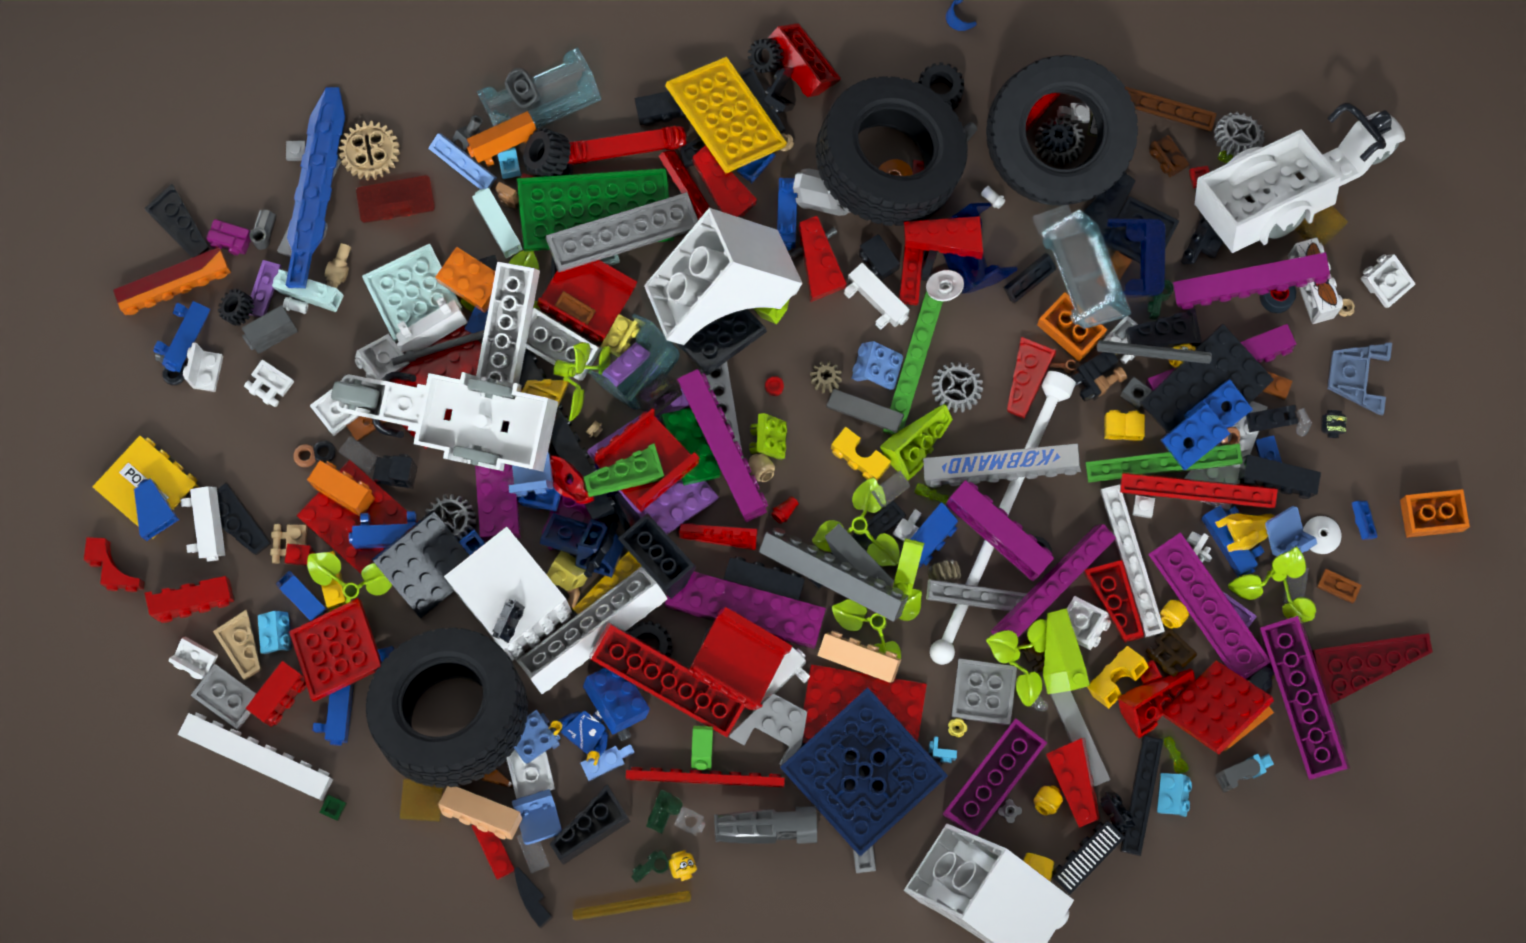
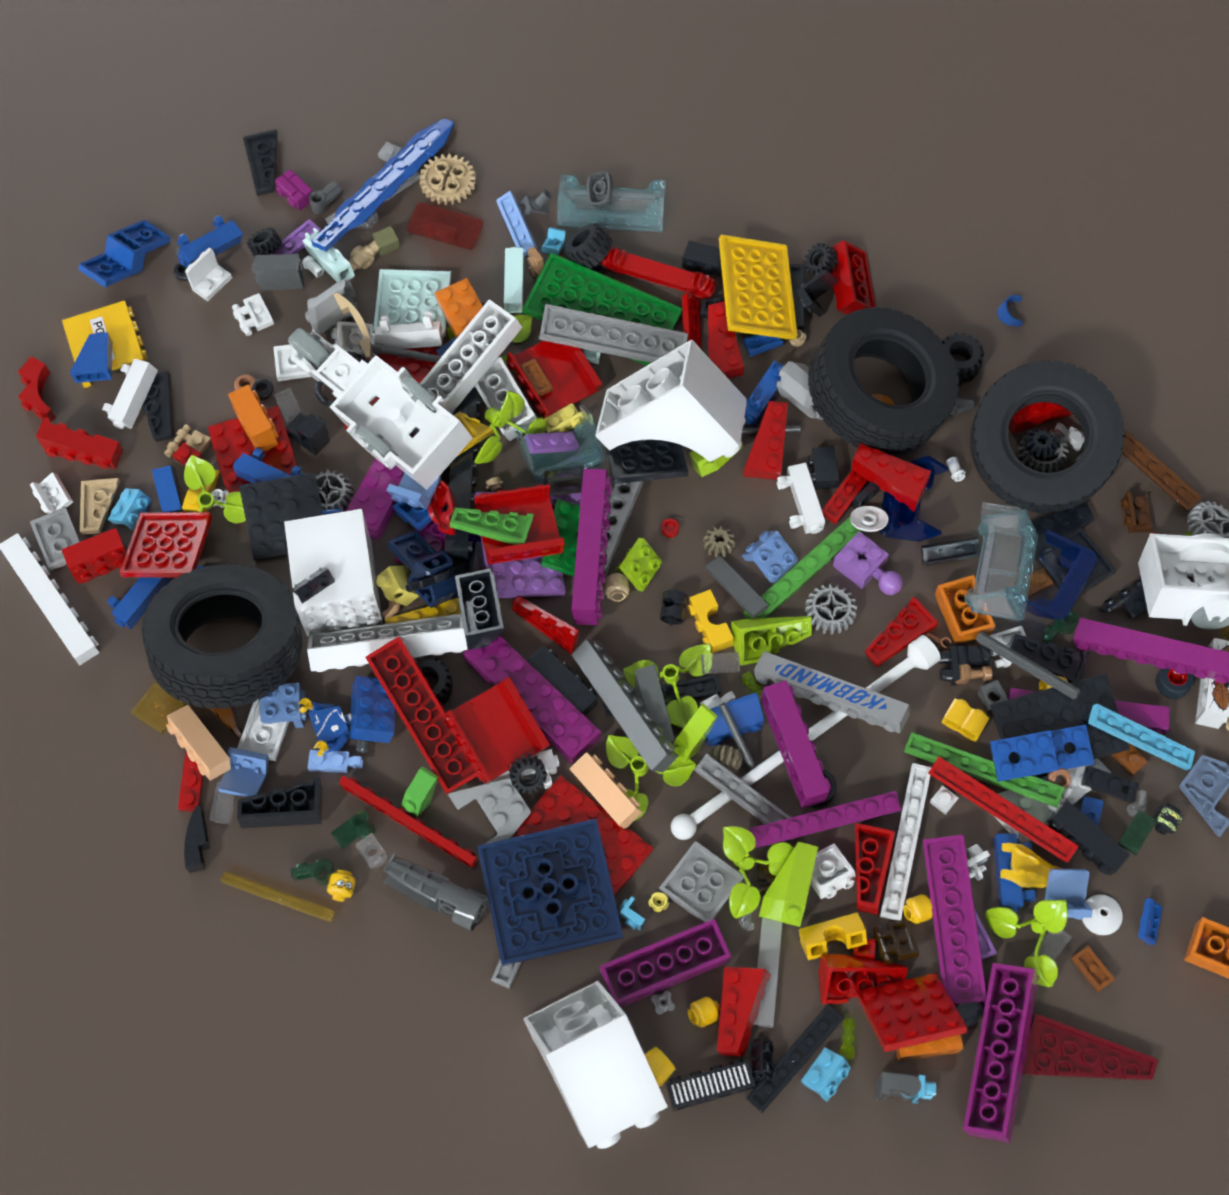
camera: 30 degrees right, 10 degrees down
(108, 388) = (124, 253): none -> blue bracket
(171, 281) = (228, 200): brick -> none
(333, 808) = (82, 674): dark green plate -> none
(342, 339) = (324, 310): none -> light grey brick
(350, 243) = (386, 240): none -> olive panel
(352, 572) = (217, 493): none -> white plate
(360, 334) = (347, 307): none -> tan slope
(362, 427) = (305, 386): dark orange plate -> none
(501, 138) = (557, 217): orange brick -> none
(780, 675) = (523, 764): none -> black tyre
(784, 510) = (615, 633): red cone -> none
(821, 458) = (673, 607): none -> black wheel
(944, 548) = (737, 736): none -> dark grey bar
(968, 320) = (864, 560): none -> medium lavender brick
(1279, 364) = (1141, 737): none -> medium azure plate
(1316, 449) = (1137, 832): none -> clear green plate

